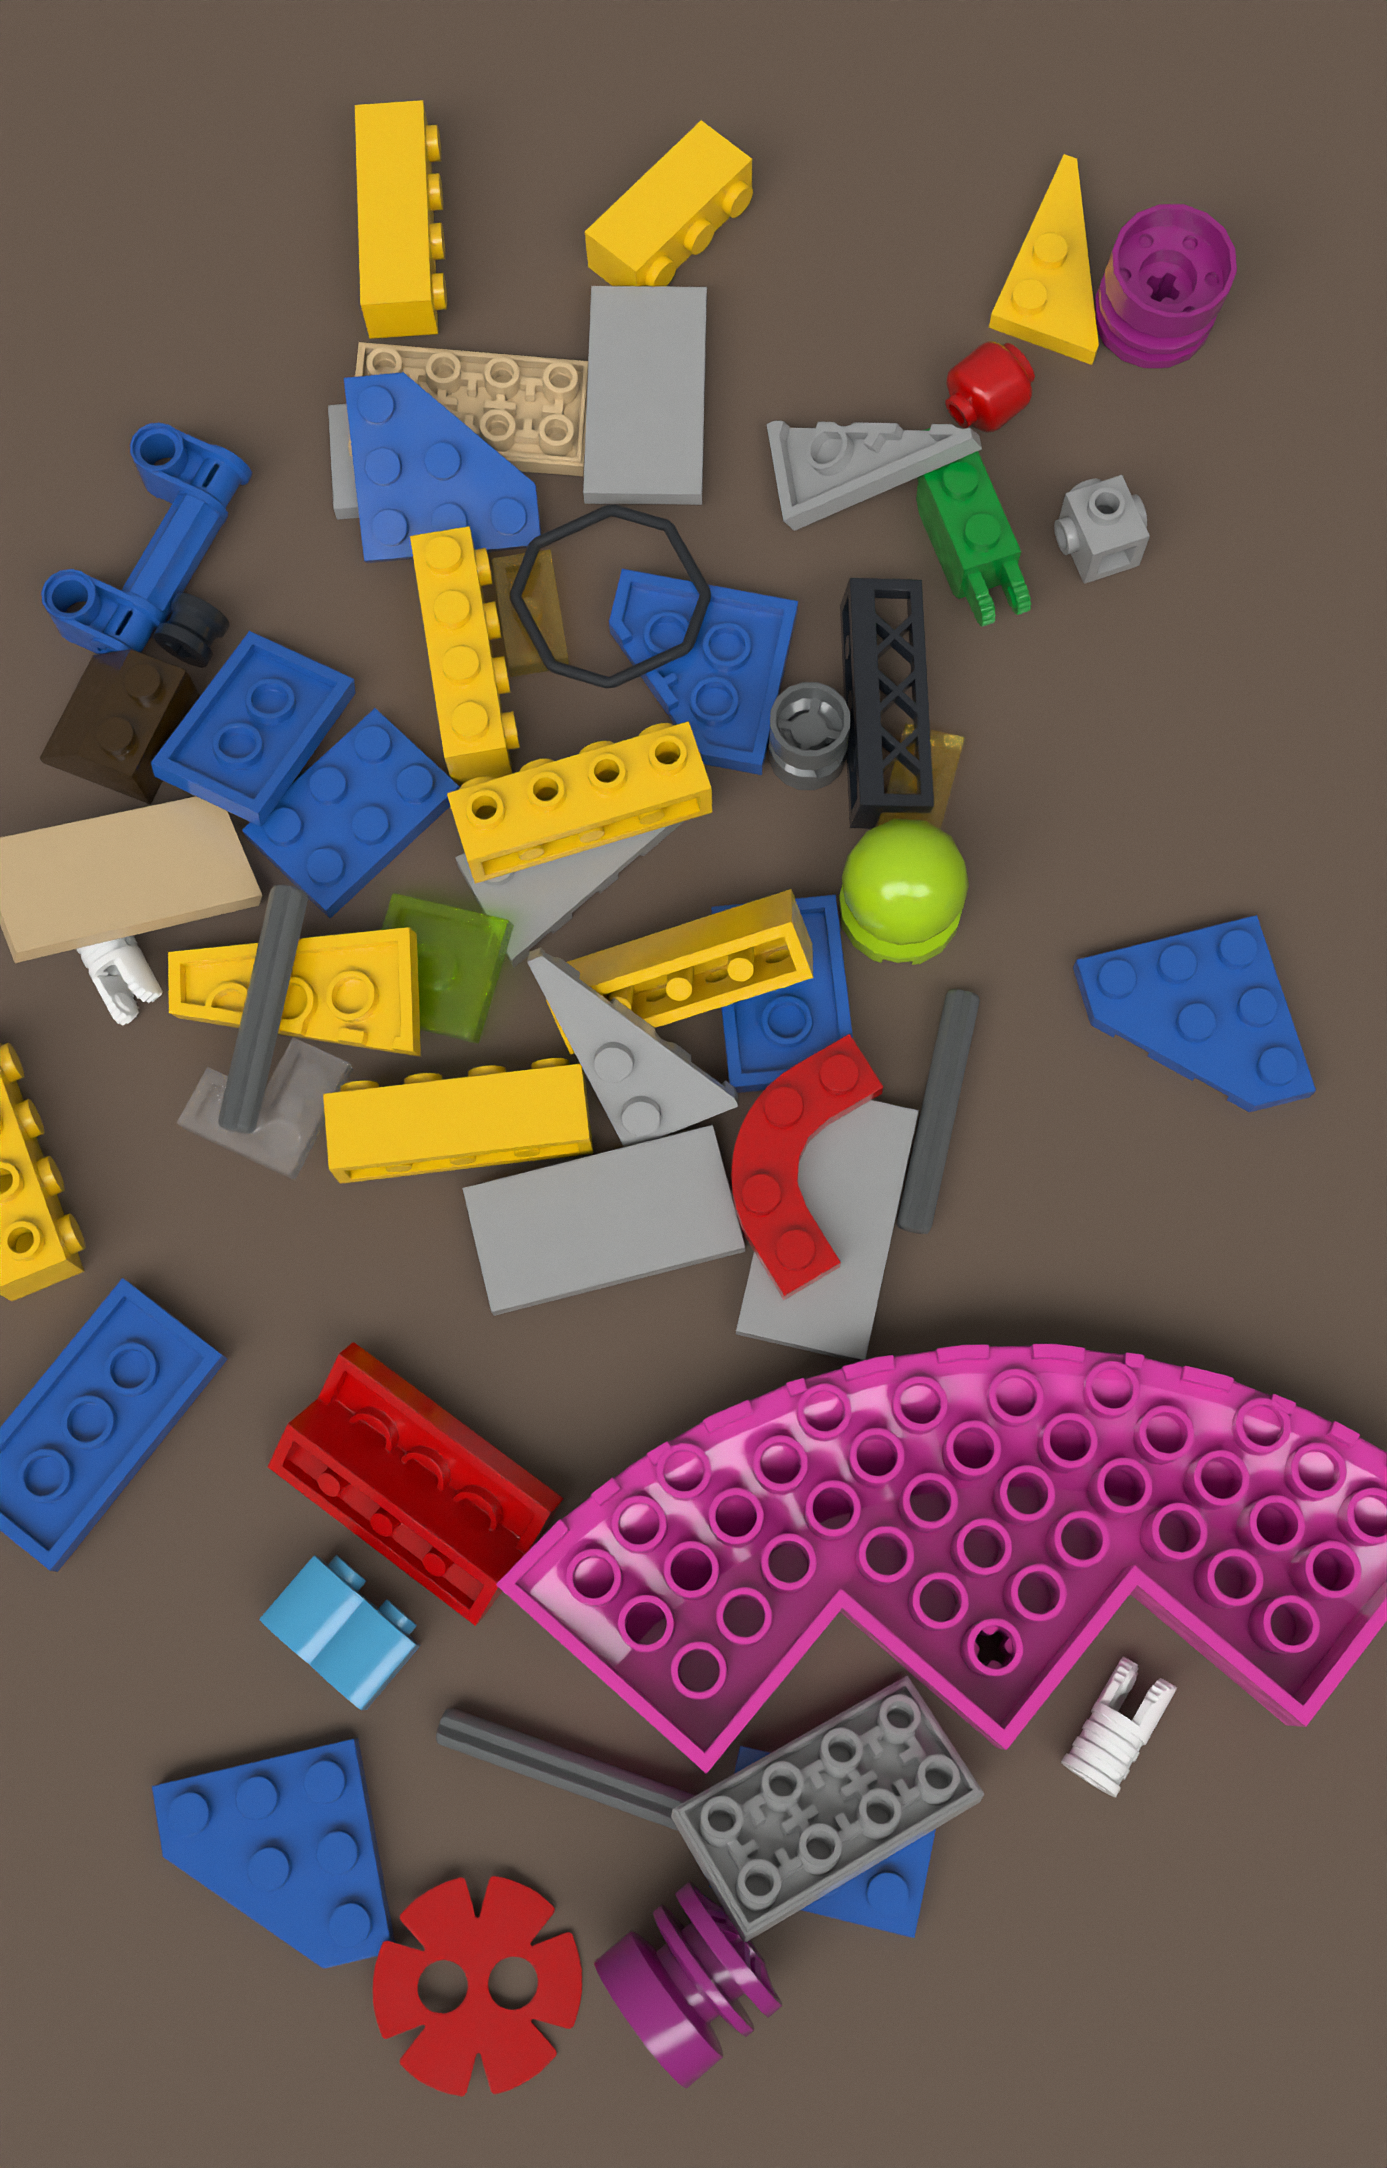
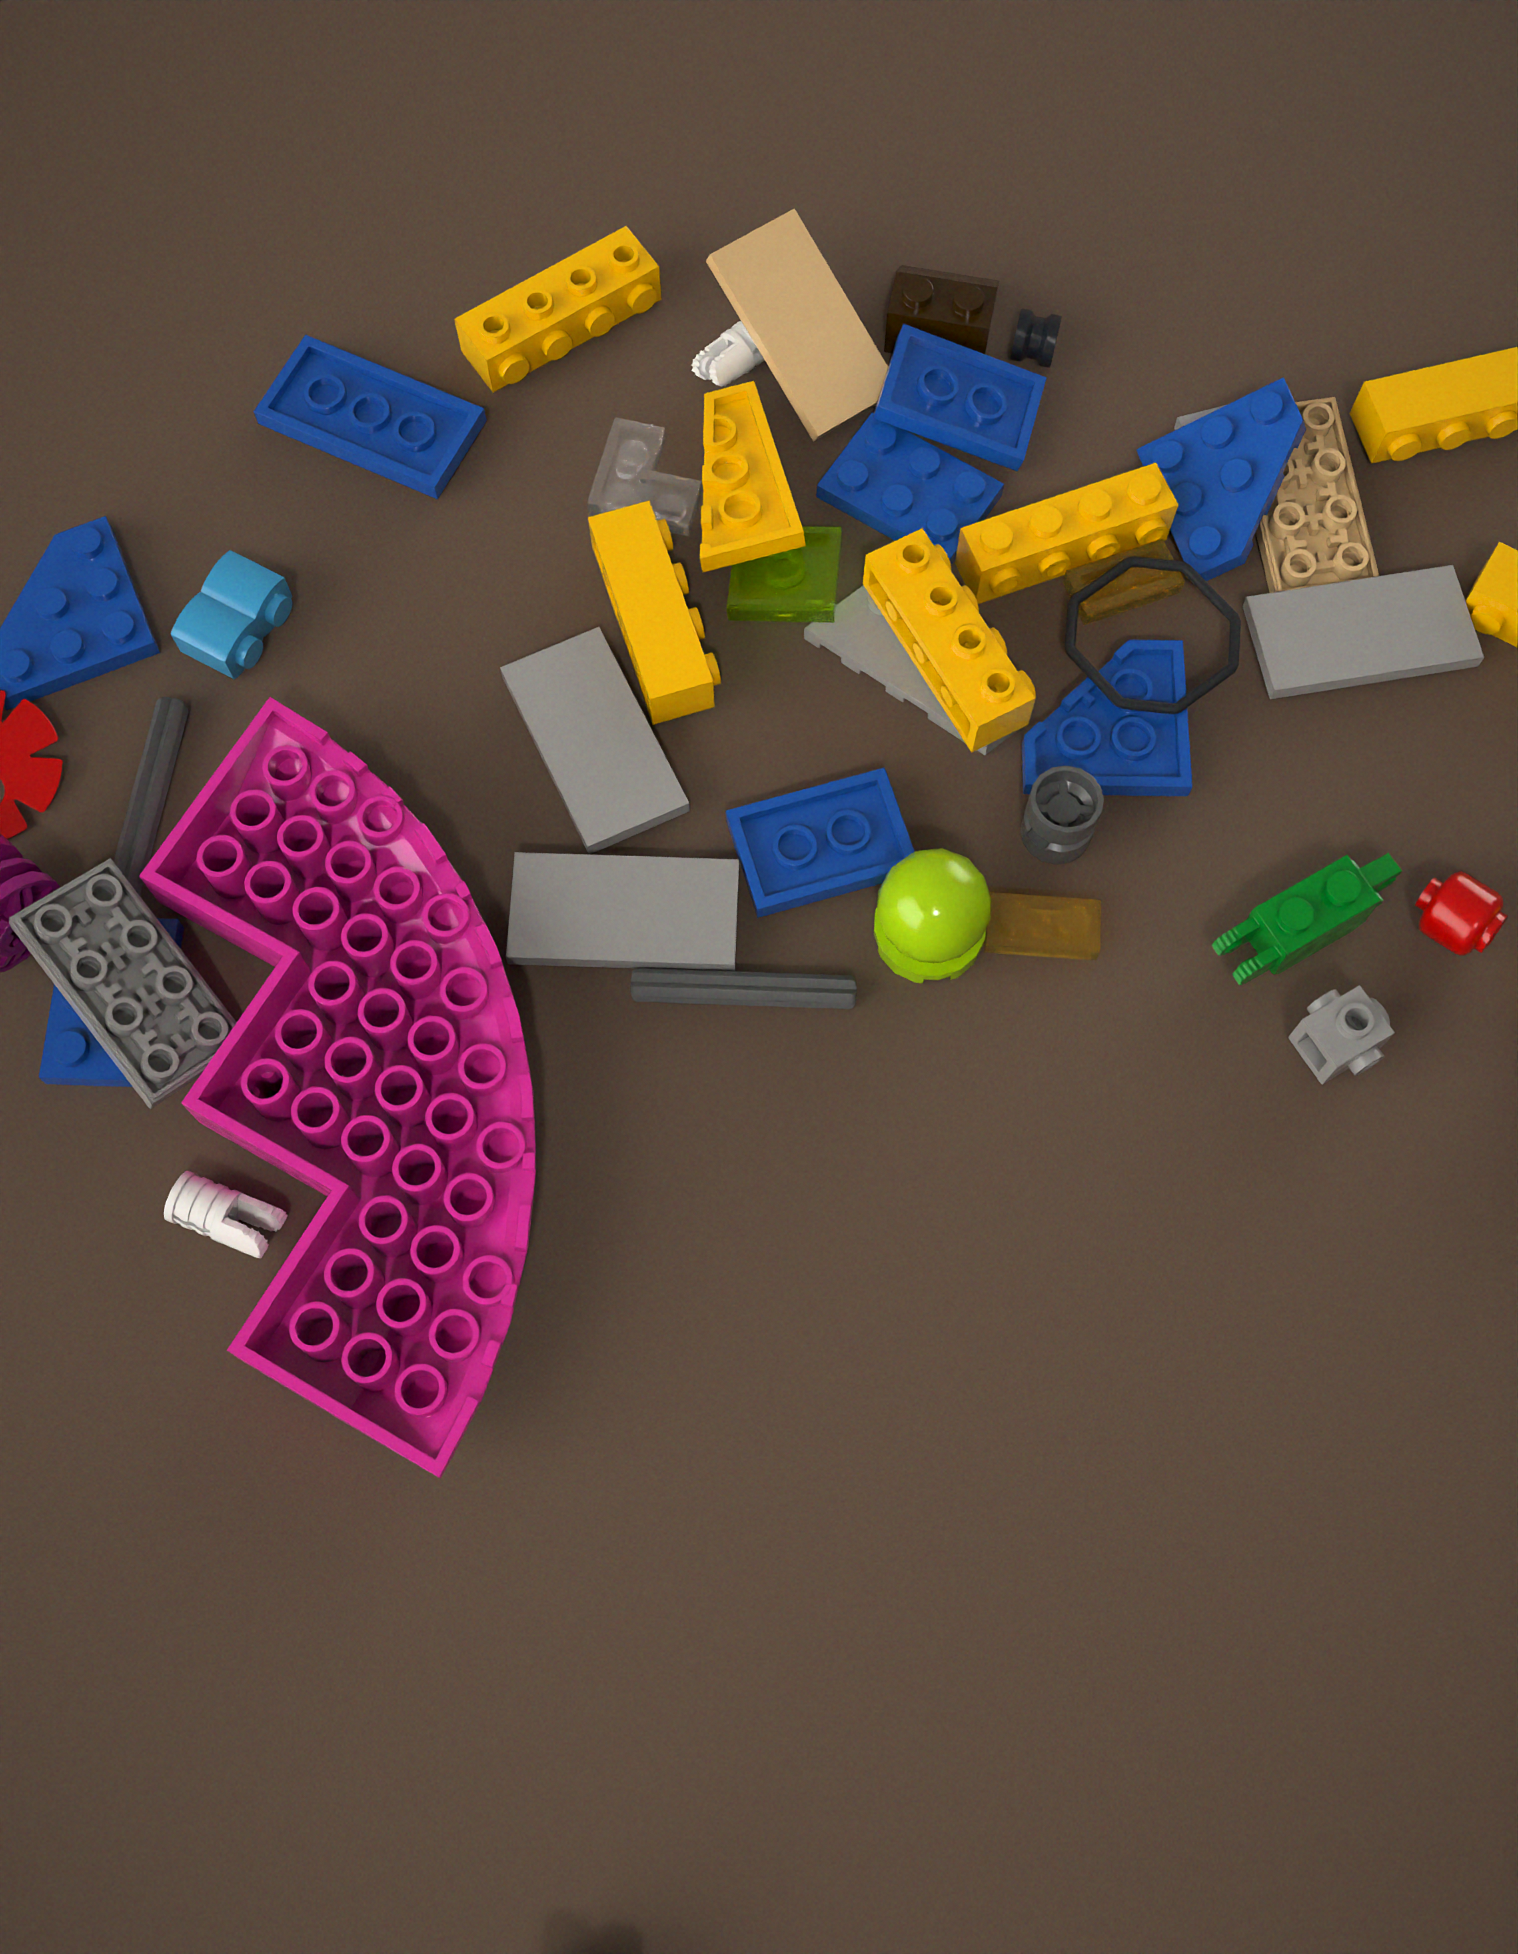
camera: 75 degrees right, 5 degrees down
(199, 486) = (1167, 318): blue piece -> none
(263, 1009) = (714, 446): dark grey axle -> none
(414, 1482) = (360, 639): red slope -> none
(637, 1076) = (724, 715): light grey wing -> none
(704, 962) = (811, 743): yellow brick -> none
(769, 1156) = (672, 848): red plate -> none
(843, 465) = (1338, 800): light grey wing -> none
(862, 696) = (1113, 860): black fence -> none
(1203, 1009) = (887, 1205): blue plate -> none

